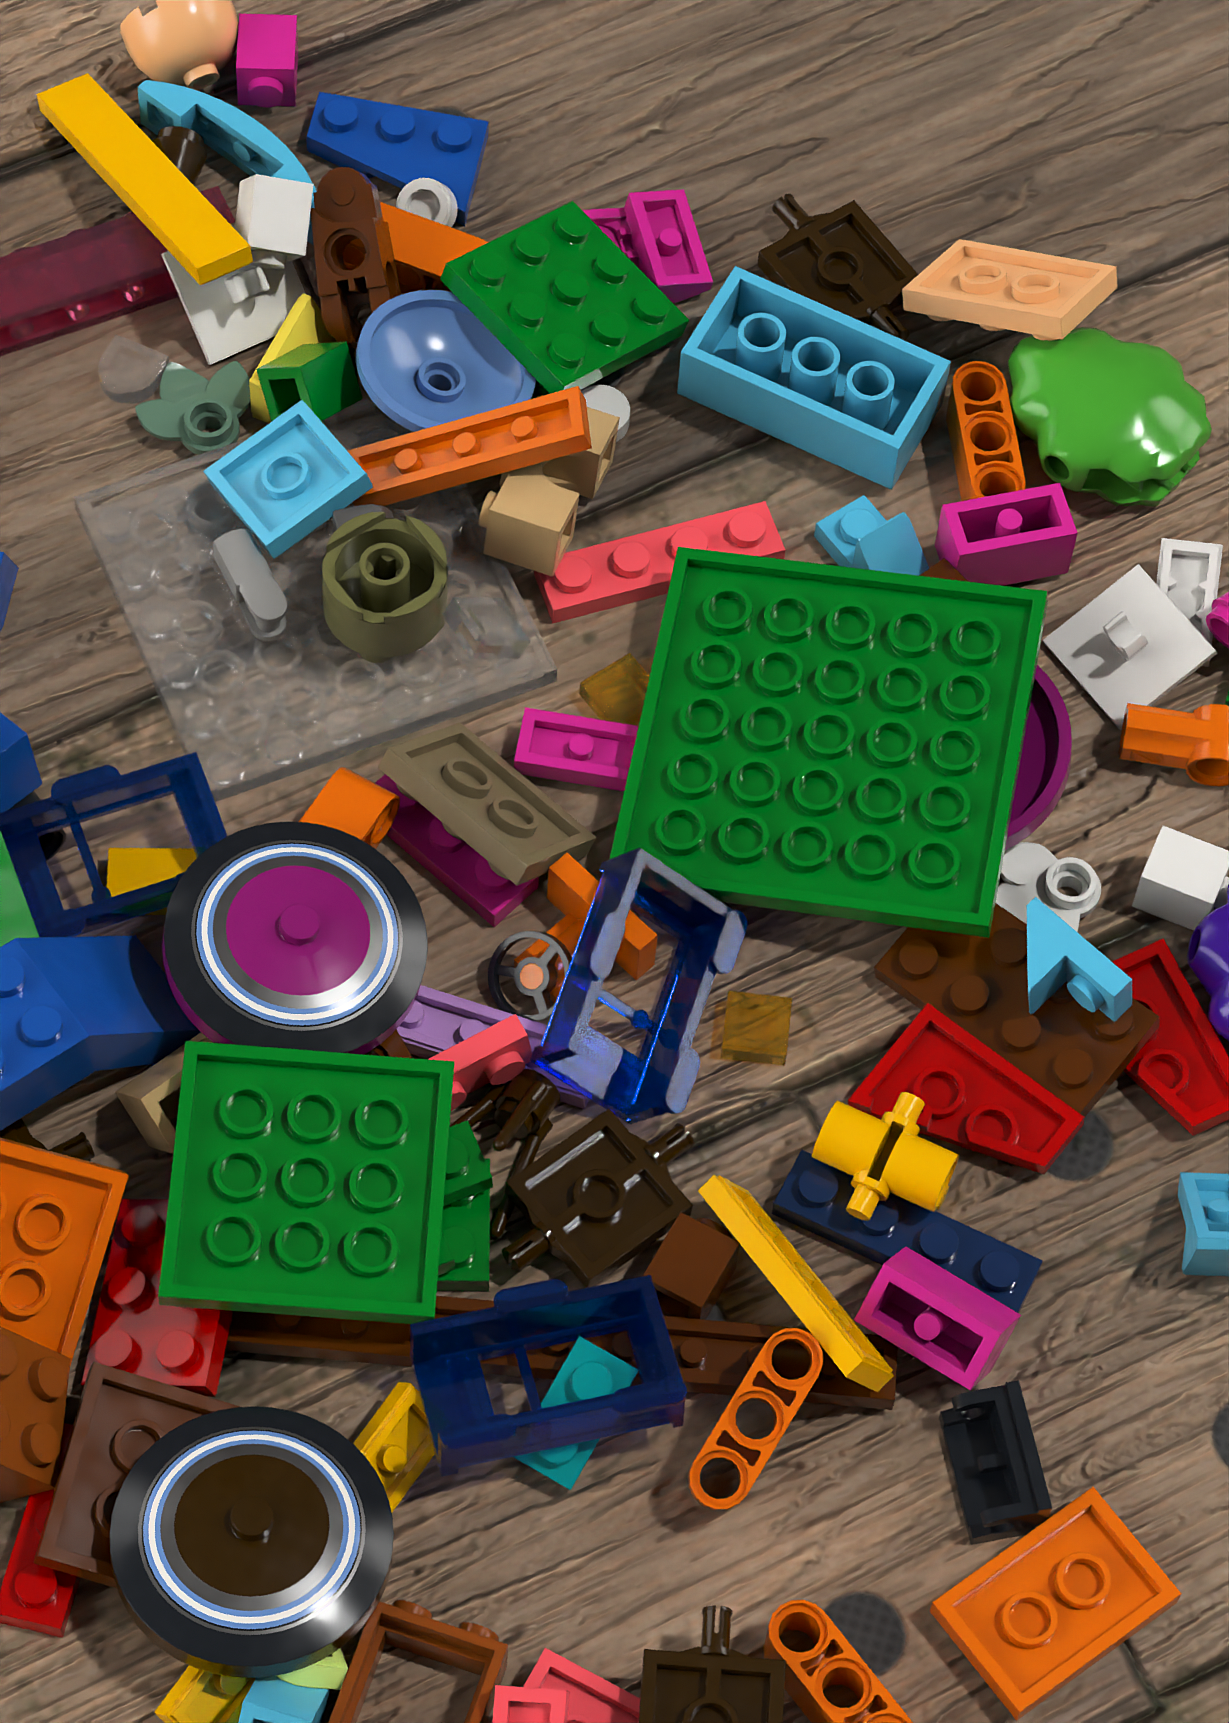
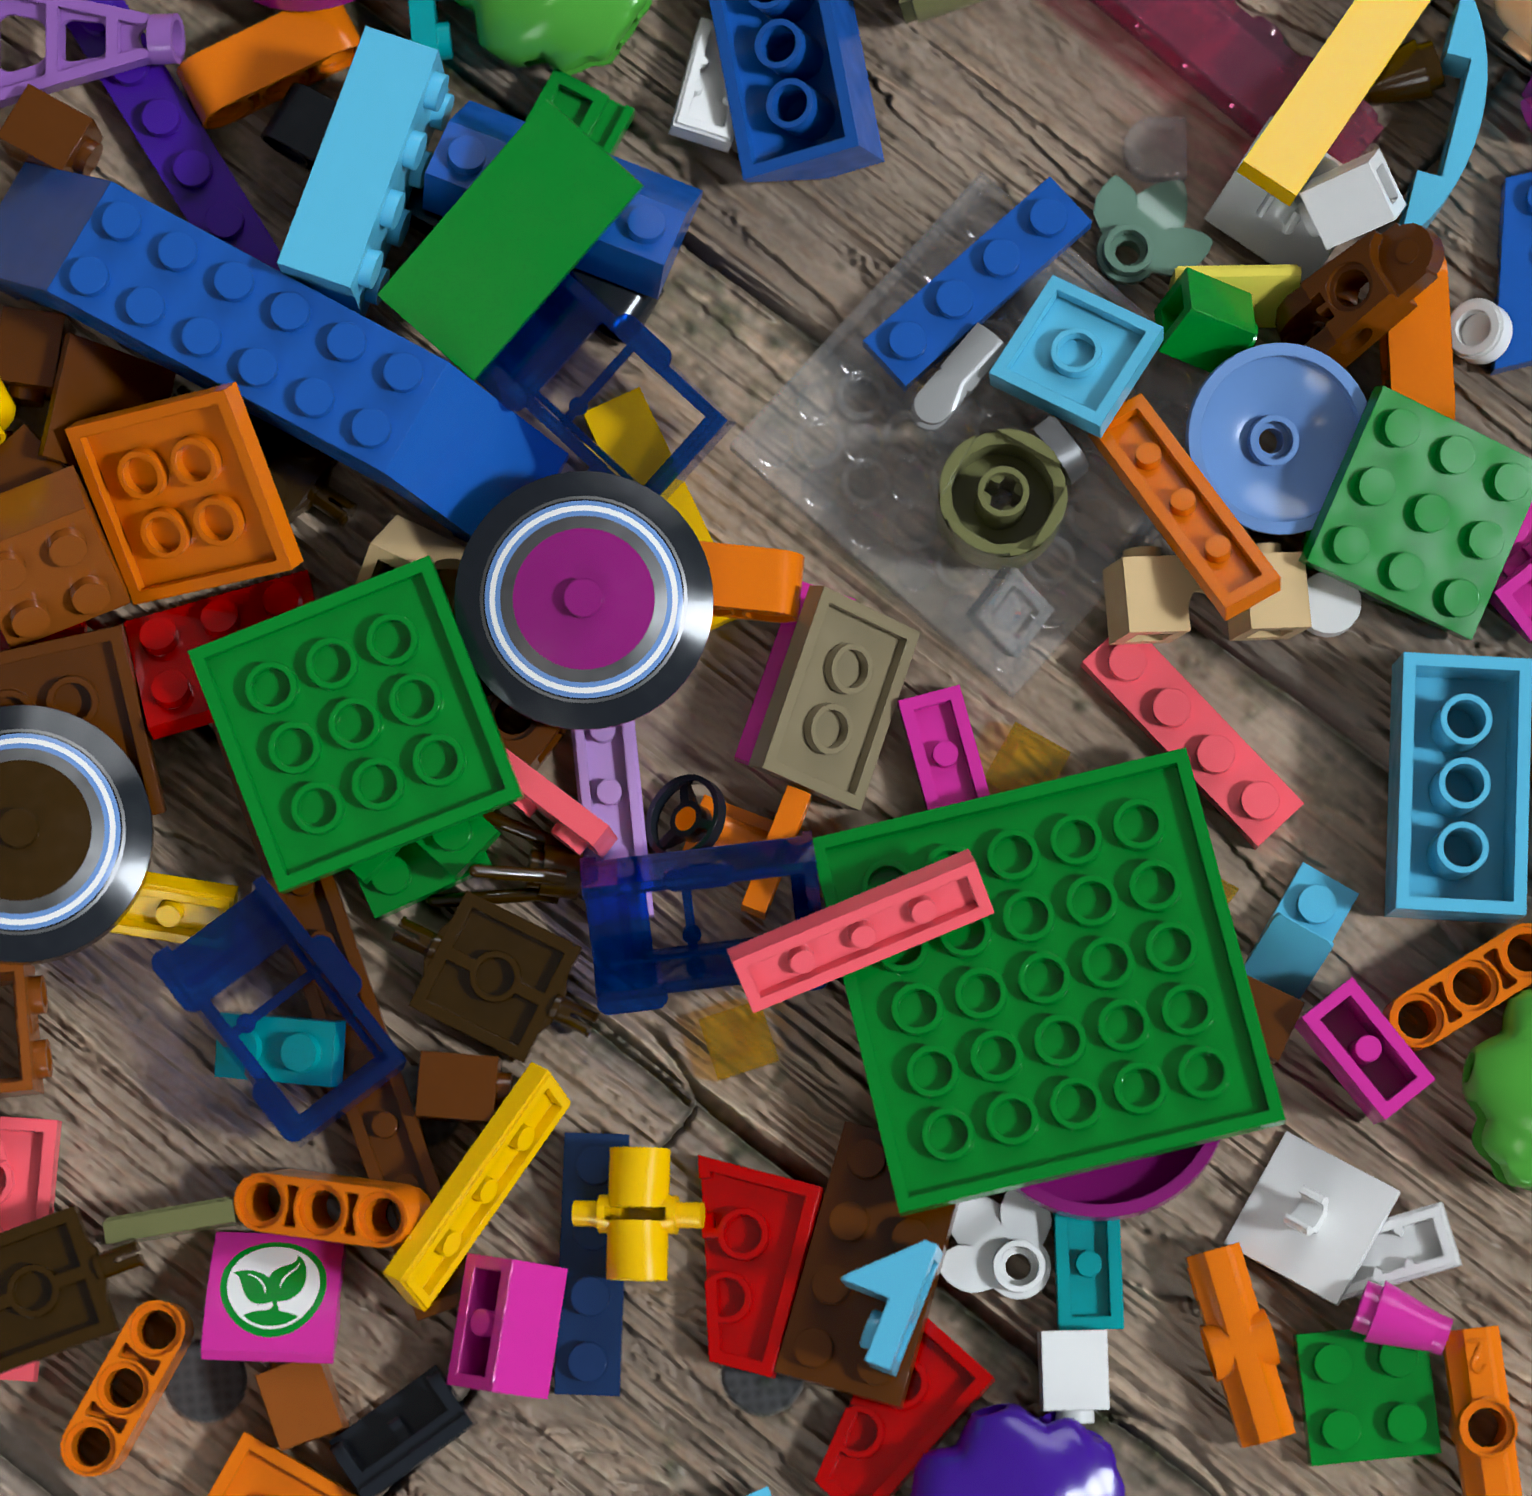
camera: 70 degrees right, 20 degrees up
(175, 538) = (977, 283): none -> blue plate
(696, 1579) = (170, 1221): none -> olive tile
(717, 851) = (861, 930): none -> coral plate
(815, 1515) = (273, 1298): none -> slope
(922, 1538) = (301, 1402): none -> dark orange brick
(1099, 834) = (1088, 1274): none -> teal plate

